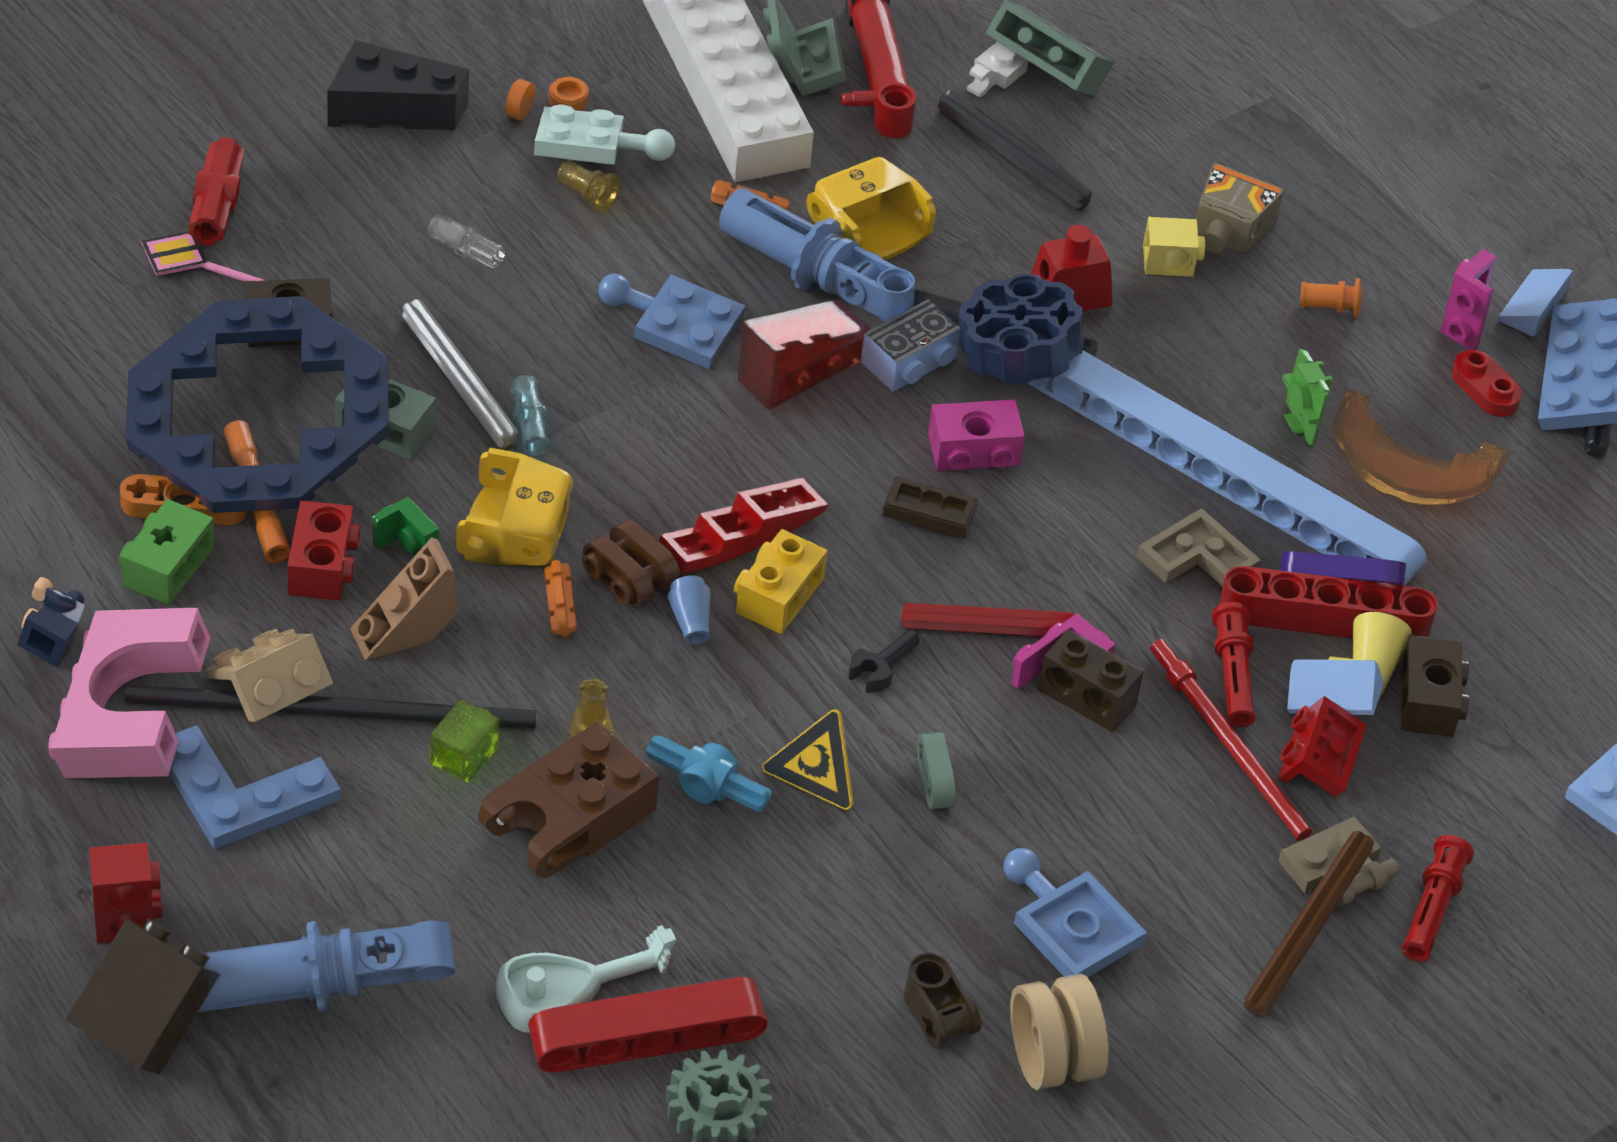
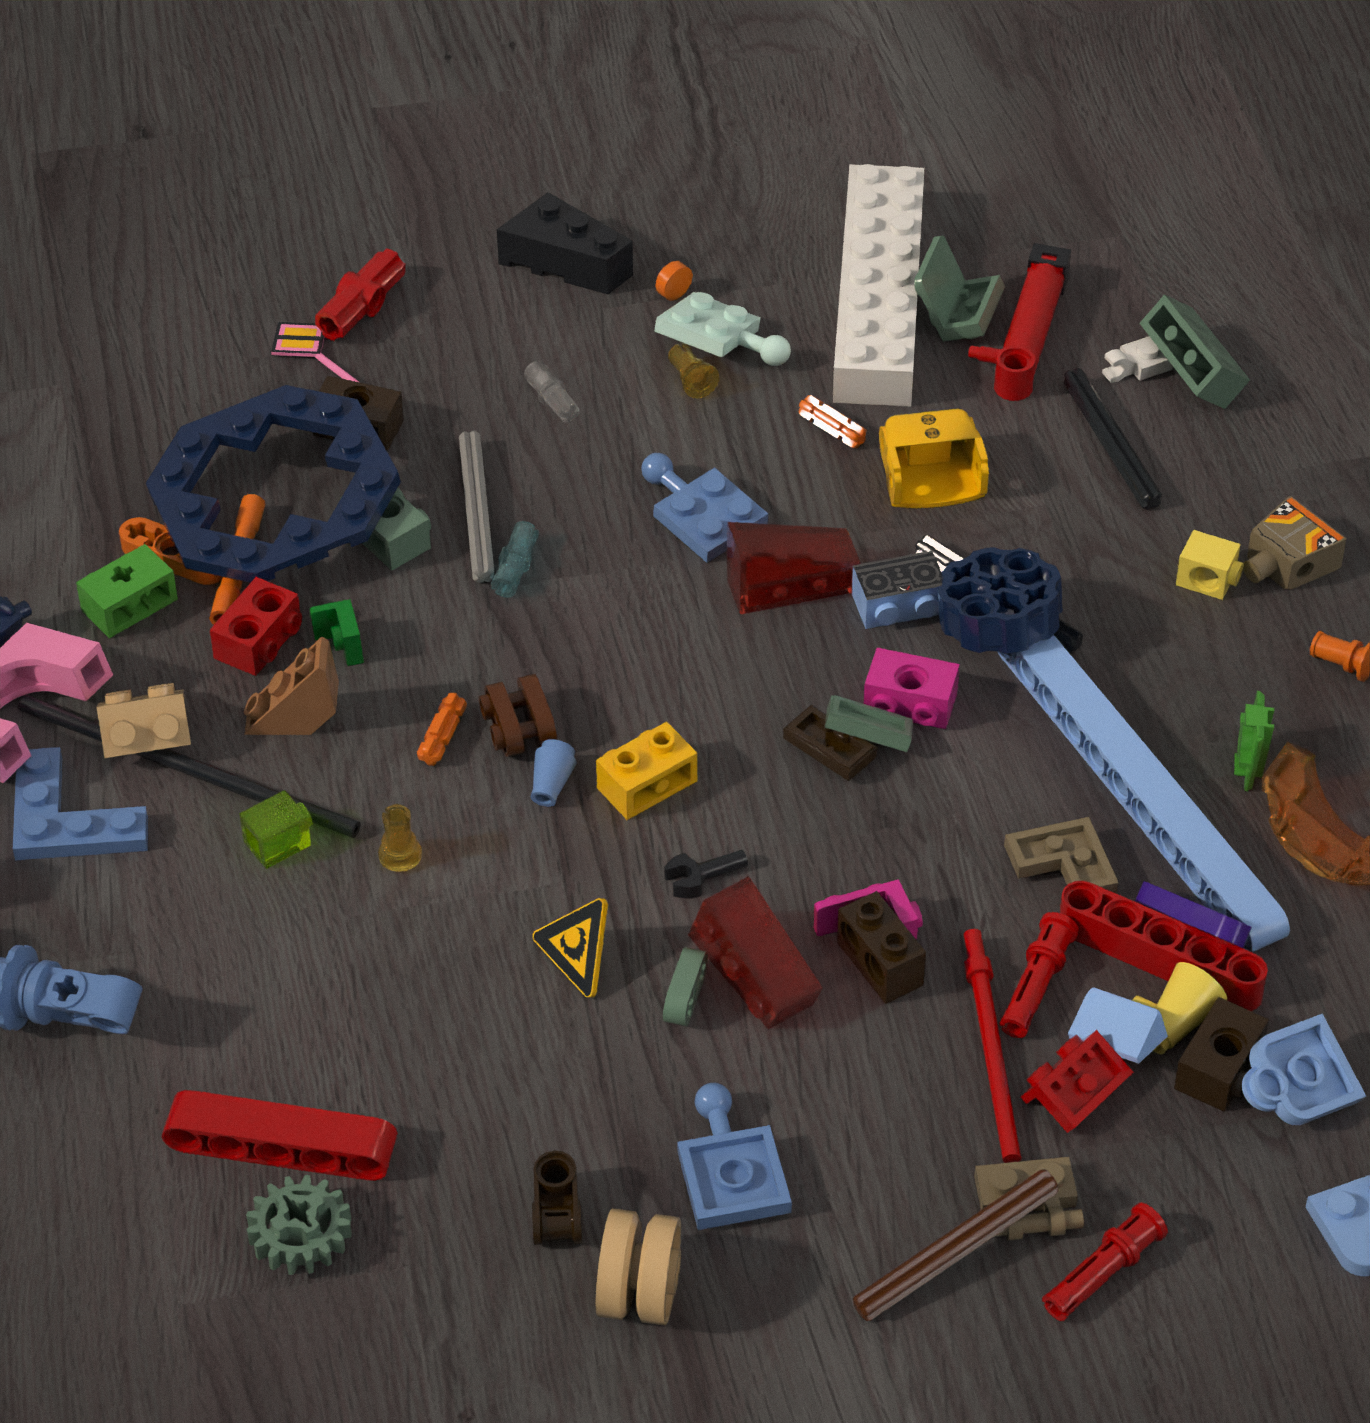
camera: 30 degrees right, 0 degrees up
(515, 513) = (447, 646): yellow piece -> none
(553, 980) = (232, 1070): light aqua piece -> none
(569, 92) = (725, 287): orange tile -> none
(573, 799) = (331, 911): reddish brown brick -> none
(708, 773) = (474, 925): dark azure axle -> none
(744, 526) = (632, 711): red slope -> none
(818, 255) = (856, 483): medium blue piece -> none
(958, 478) = (869, 723): none -> sand green tile
(980, 619) = (815, 859): red axle -> none
(986, 720) = (754, 953): none -> clear red wedge
(1080, 265) = (1091, 563): red torso -> none
(1509, 681) = (1300, 1073): none -> light blue plate

